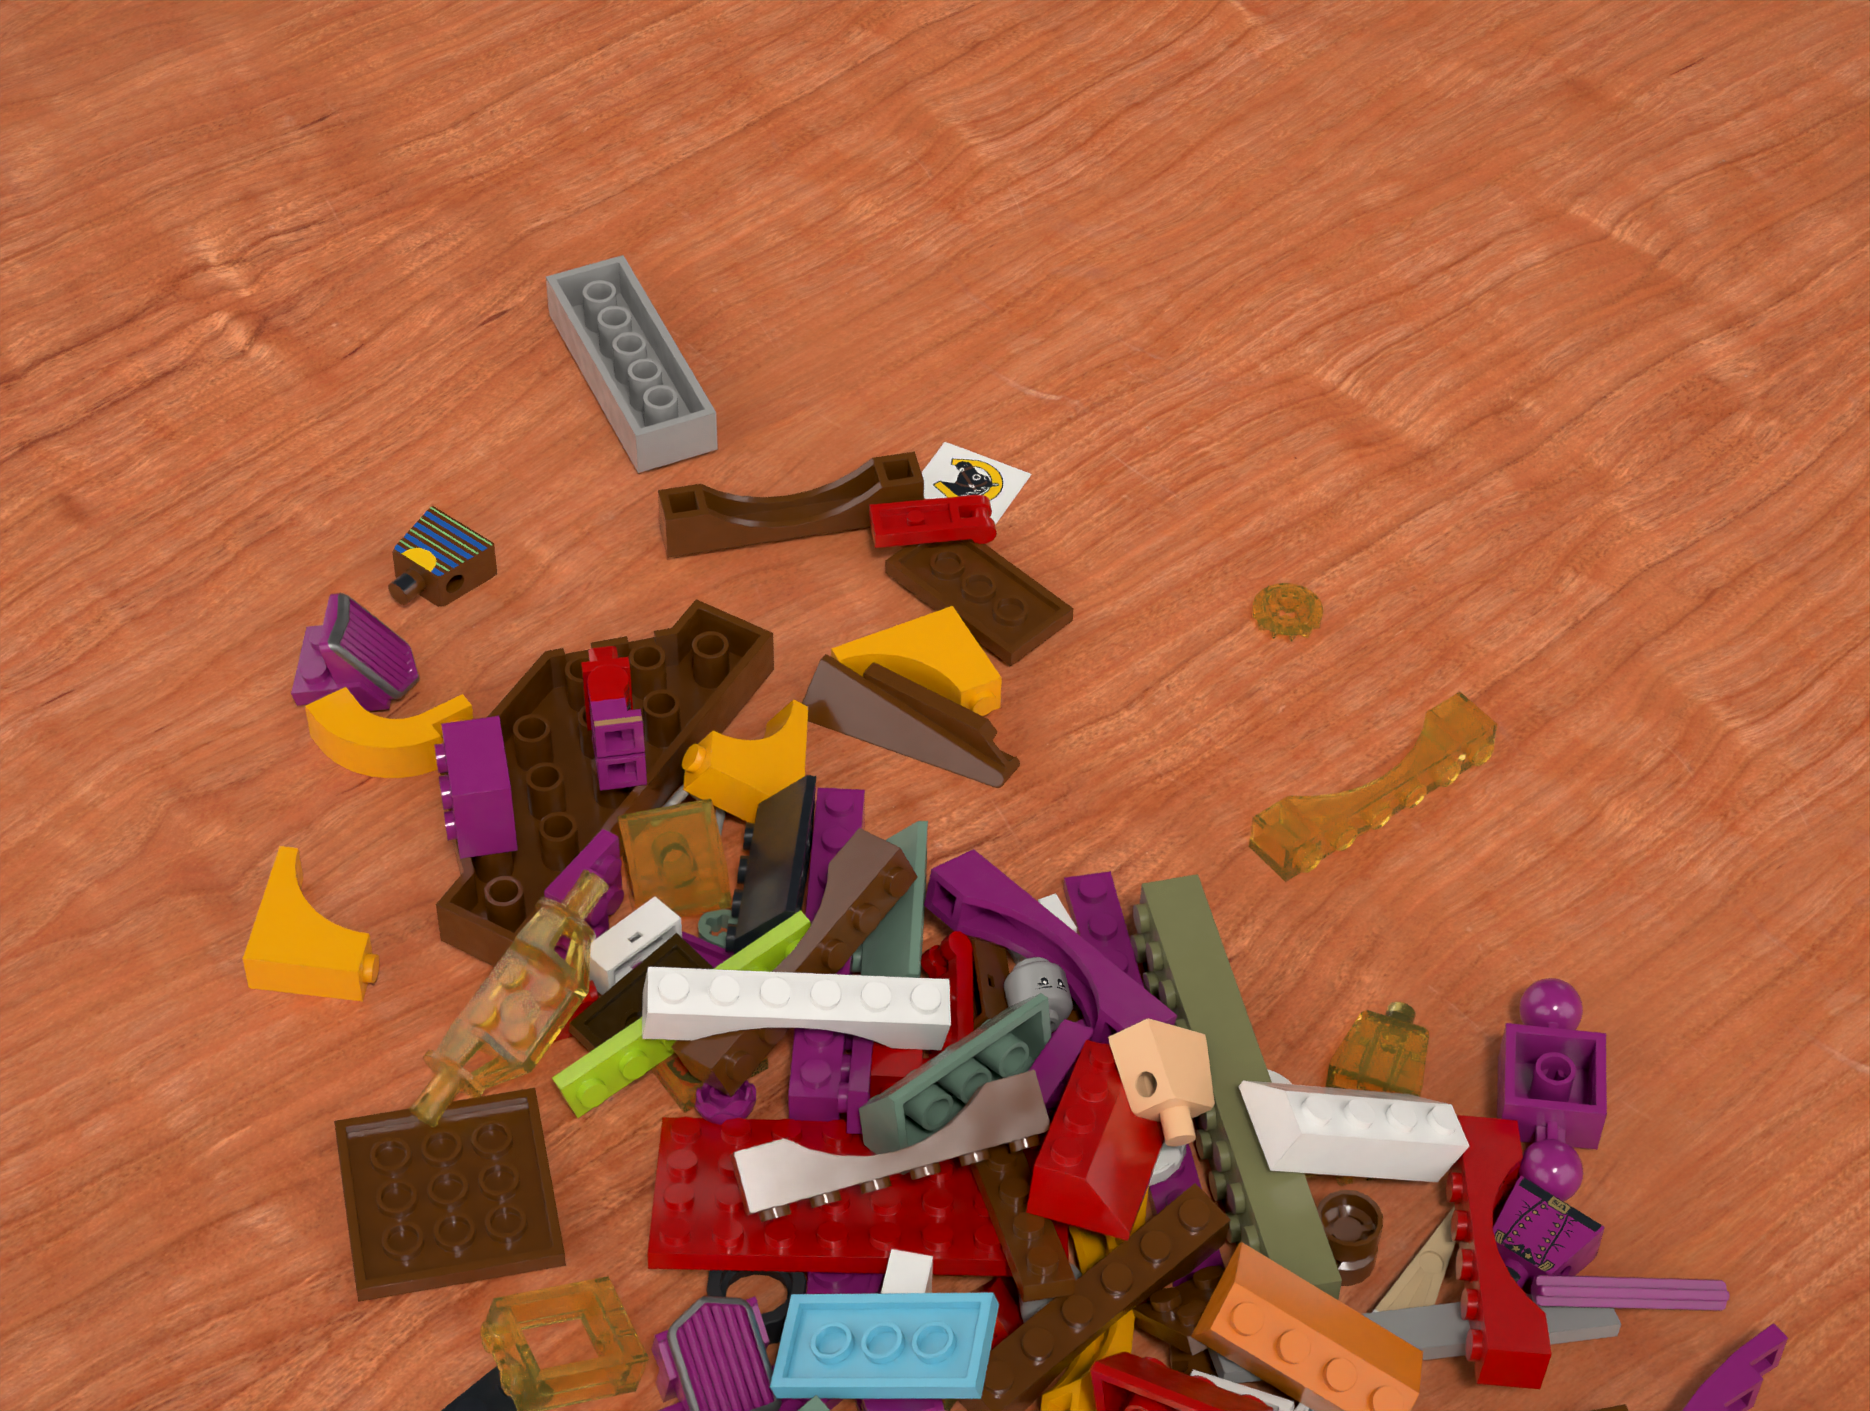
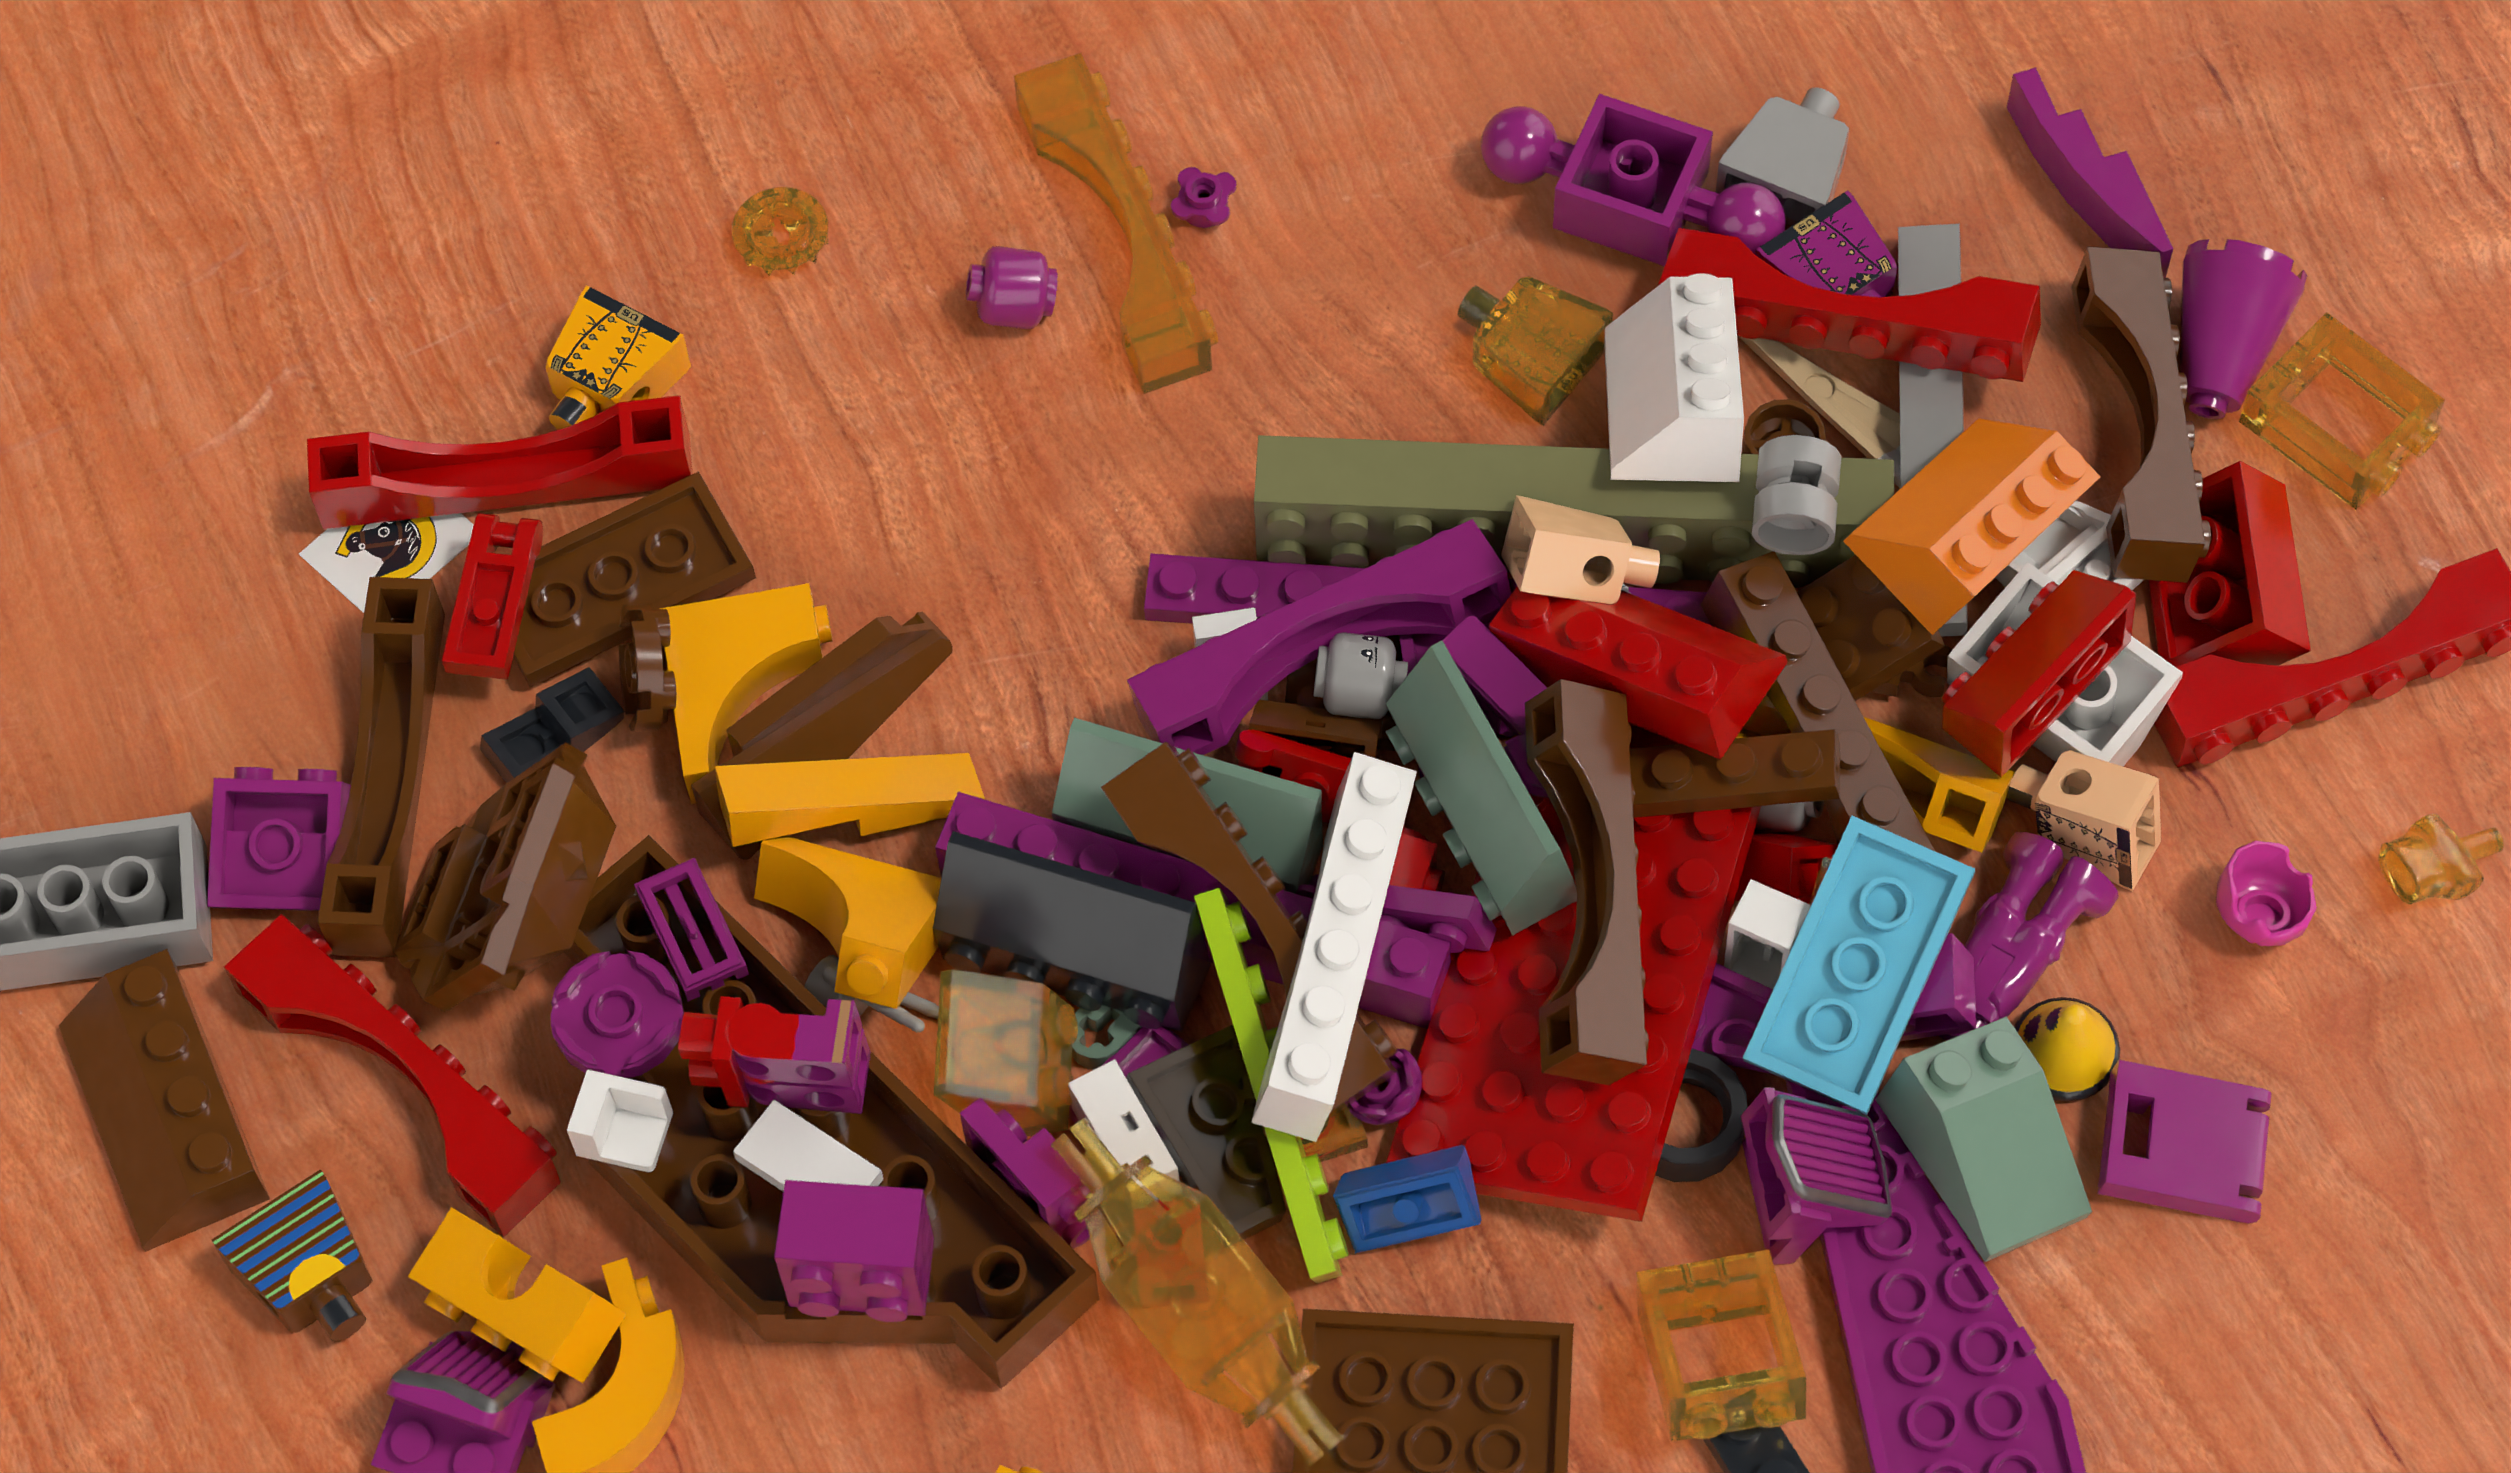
camera: 70 degrees left, 15 degrees up
(415, 668) = (553, 1320): none -> light orange arch
(535, 475) = (160, 1102): none -> reddish brown slope
(550, 658) = (620, 1121): none -> white panel
(550, 766) = (790, 1148): none -> white tile
(555, 614) = (303, 991): none -> red arch
(636, 1129) = (1408, 1199): none -> blue slope
(641, 636) = (617, 1014): none -> magenta tile
(711, 670) = (711, 973): none -> magenta tile
(715, 565) = (508, 883): none -> reddish brown piece
(729, 463) = (273, 838): none -> magenta plate
(850, 590) = (568, 712): none -> black slope
(857, 751) = (809, 795): none -> light orange slope
(905, 601) = (644, 684): none -> reddish brown plate
(1065, 557) = (394, 479): none -> red arch
(1138, 545) = (610, 358): none -> light orange torso
(1248, 1199) = (1796, 495): none -> light grey wheel
(1292, 741) = (1012, 287): none -> magenta head
(1423, 838) = (1203, 211): none -> magenta plate
(1629, 1292) = (1926, 201): magenta axle -> none
(1630, 1192) = (1791, 153): none -> light grey torso

